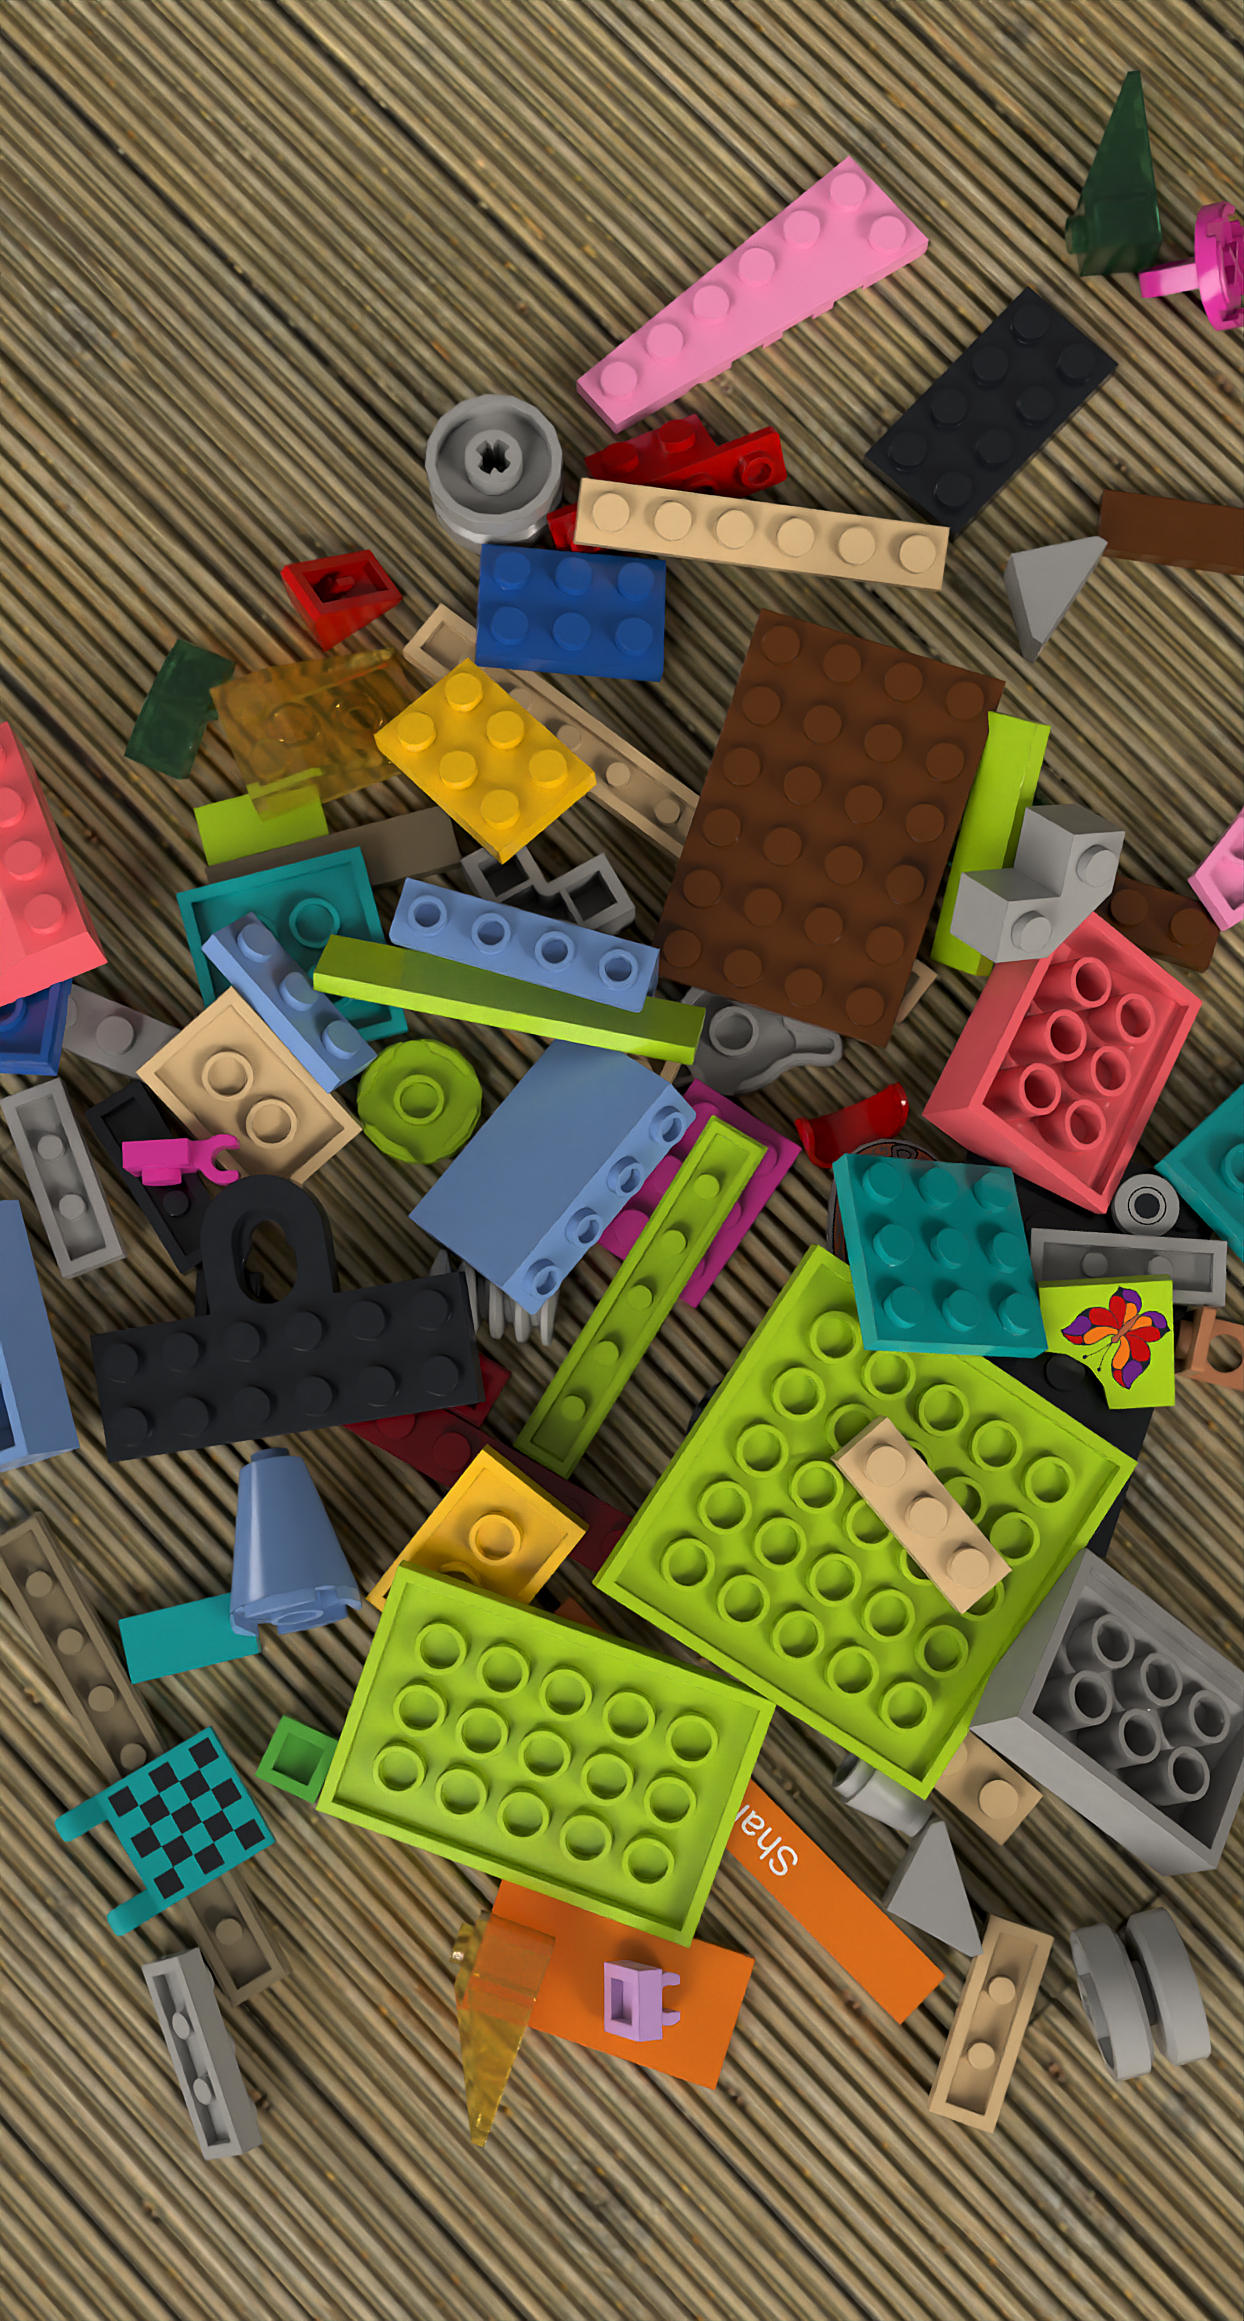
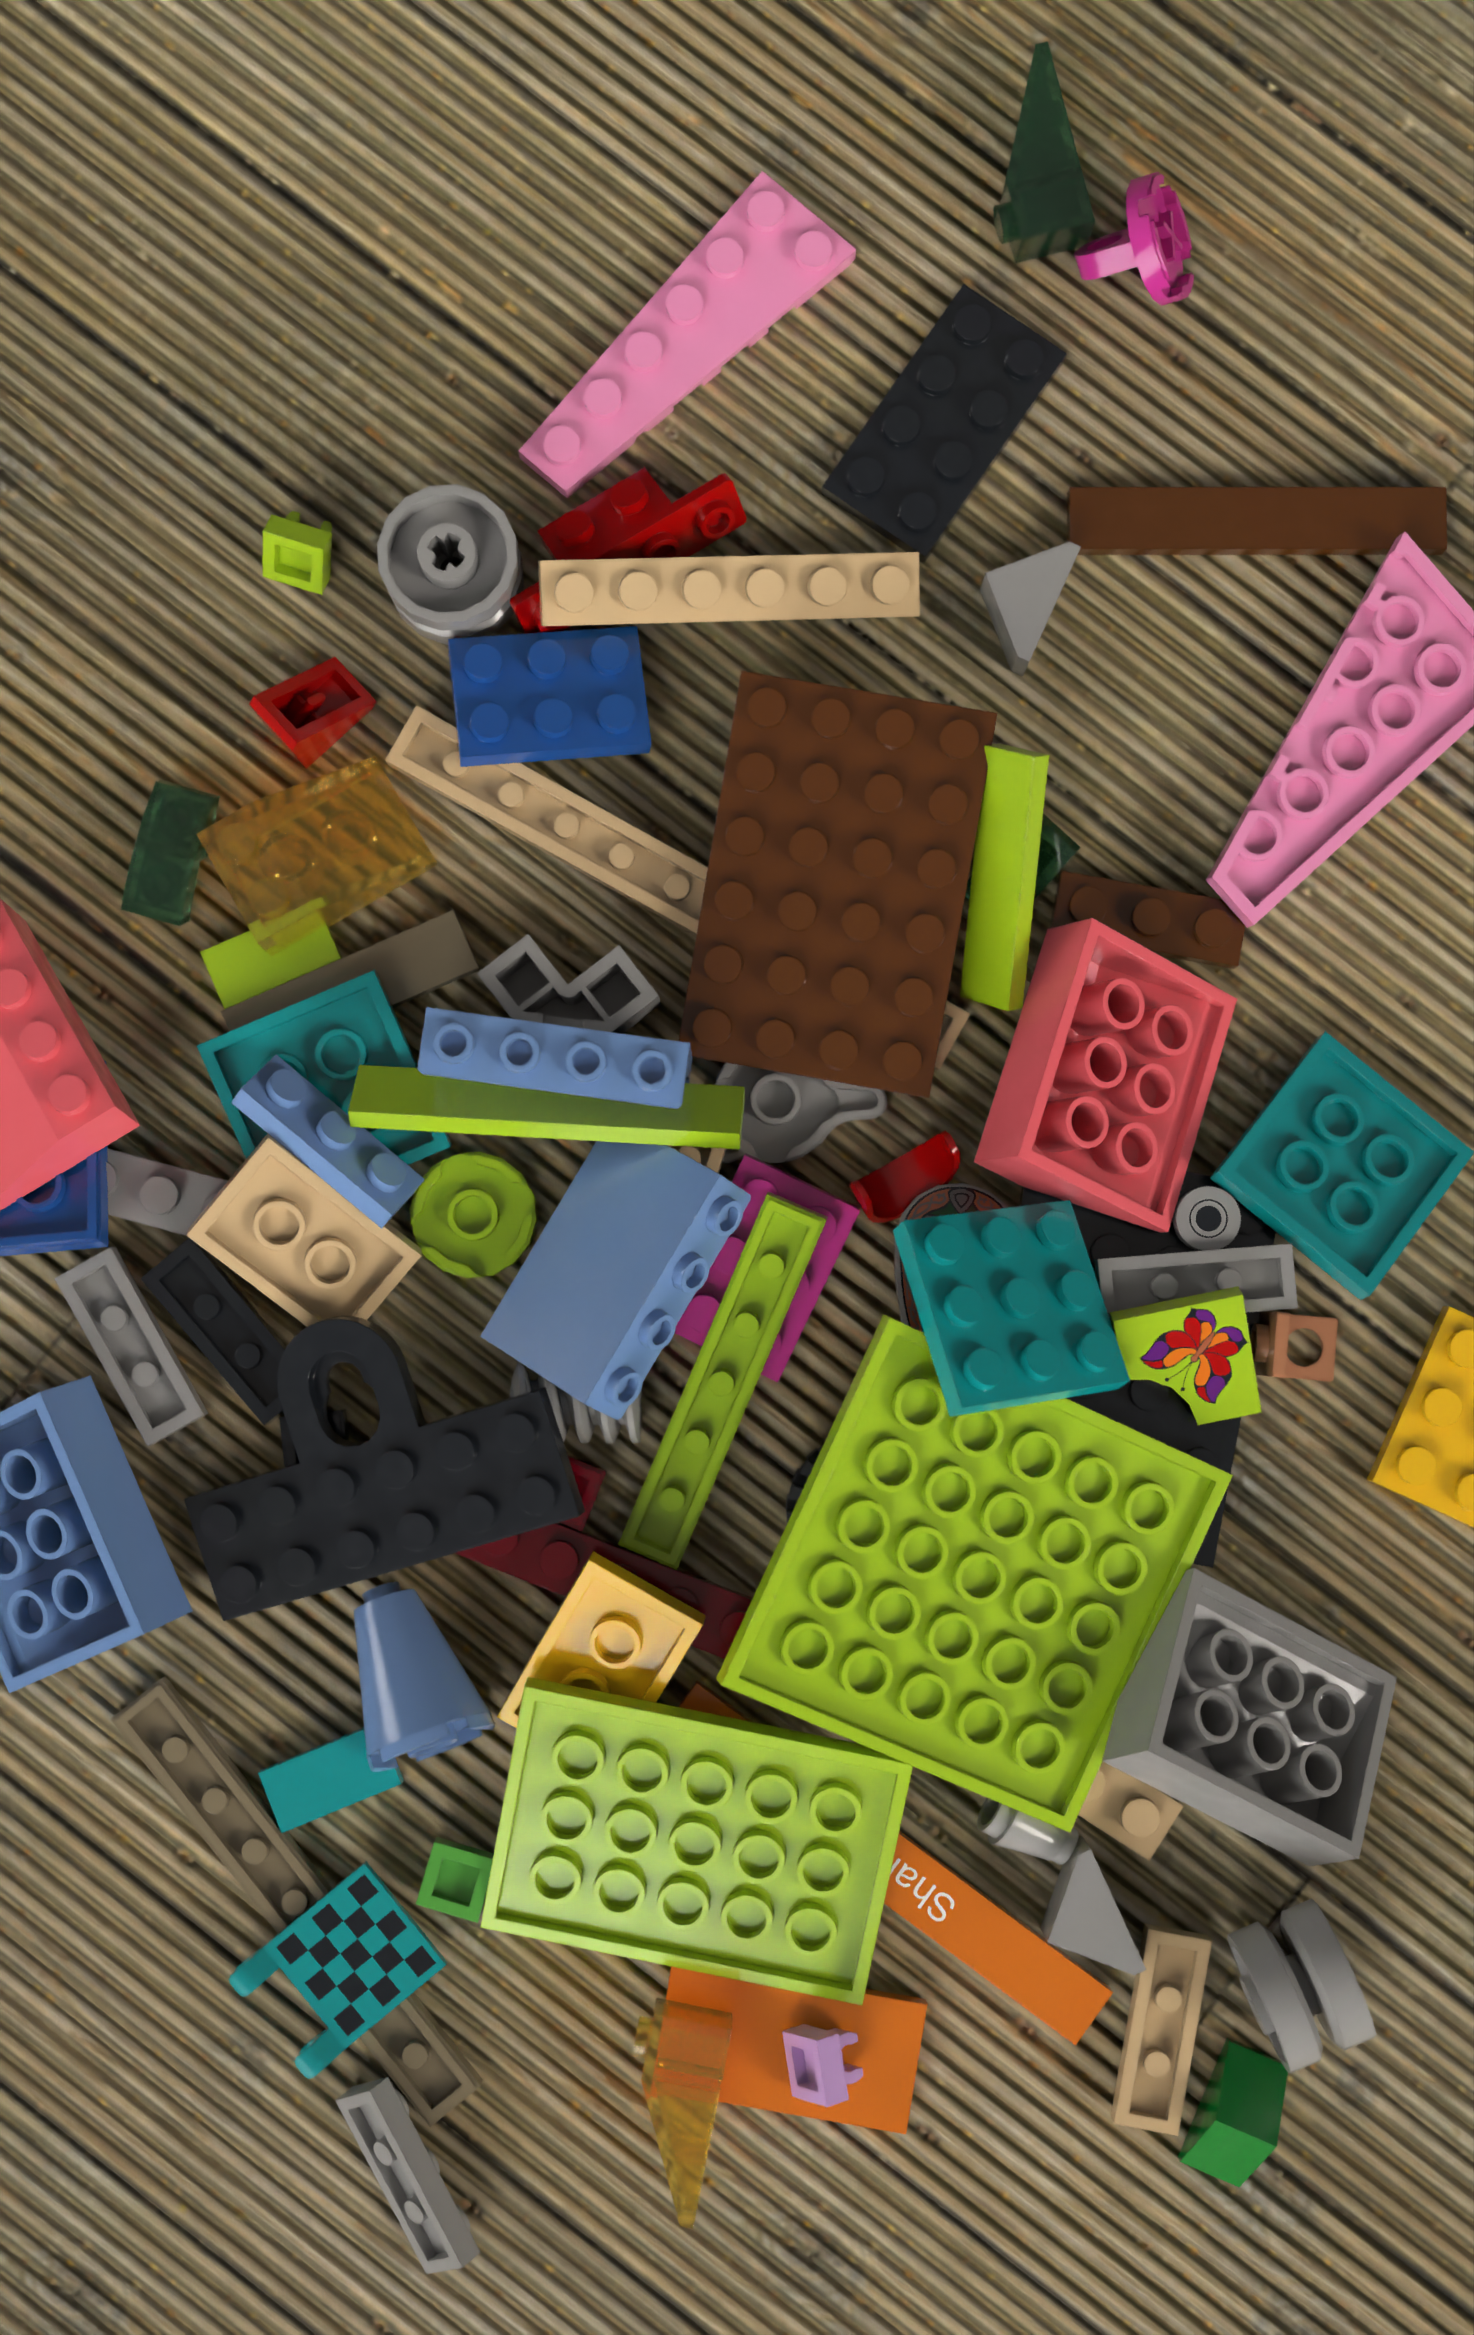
camera: 10 degrees left, 5 degrees up
(166, 1159) = (230, 1319): dark pink plate -> none
(349, 445) = (297, 553): none -> lime tile
(485, 760) = (486, 866): yellow plate -> none
(921, 1513) = (1027, 1562): tan plate -> none
(1055, 2124) = (1237, 2115): none -> green slope
(1057, 880) = (1075, 912): light grey brick -> none

